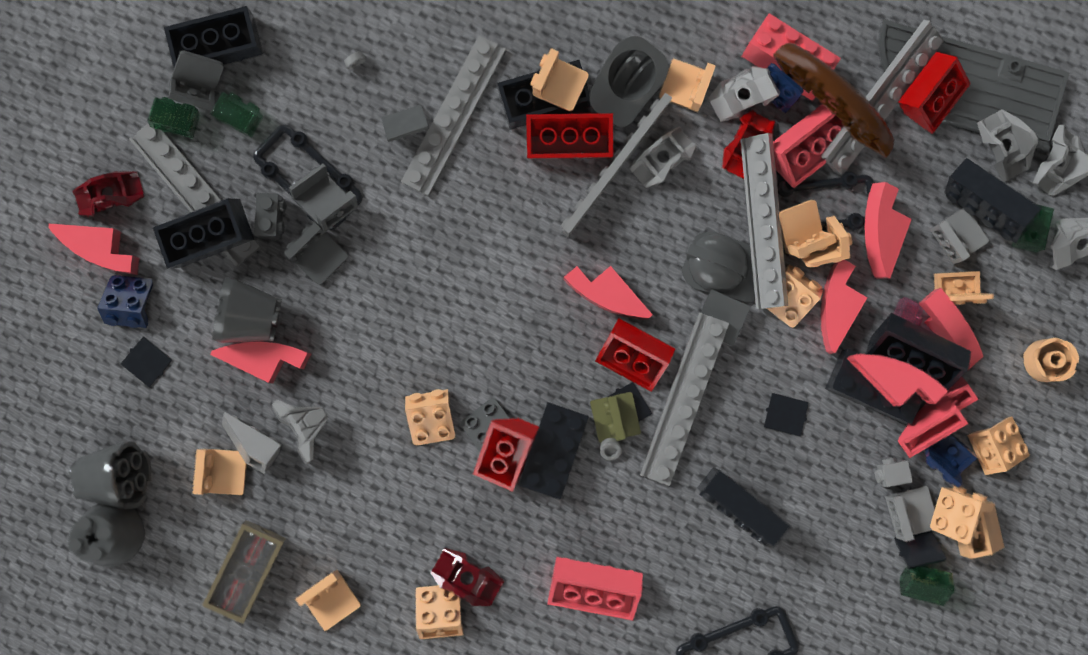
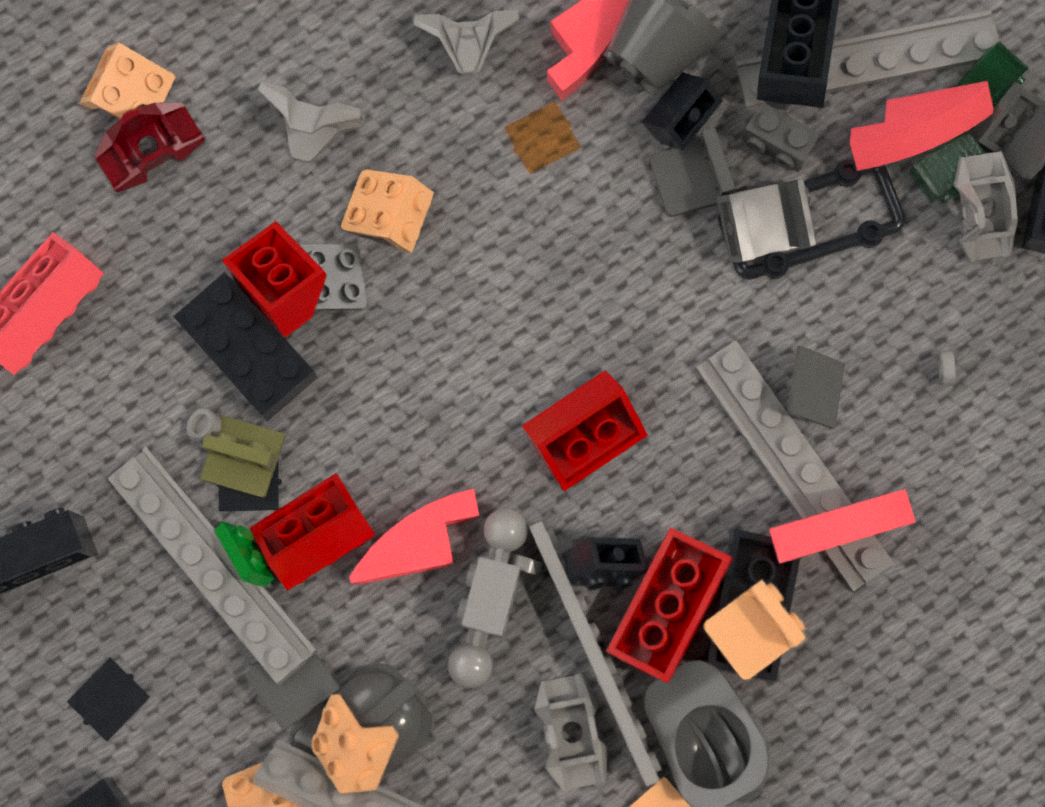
camera: 125 degrees right, 5 degrees down
(220, 140) = (920, 124): none -> coral slope
(234, 88) = (979, 179): none -> light grey piece
(282, 278) = (682, 111): none -> black brick
(339, 352) = (542, 137): none -> clear orange piece
(407, 490) = (310, 126): none -> light grey piece
(476, 67) = (842, 525): none -> coral slope
(496, 236) = (585, 430): none -> red slope
(565, 183) = (605, 562): none -> black brick
(589, 228) = (526, 564): none -> light grey tile
(618, 234) = (490, 598): none -> light grey brick
(672, 377) = (243, 553): none -> green plate
(744, 263) = (349, 753): none -> light nougat bracket

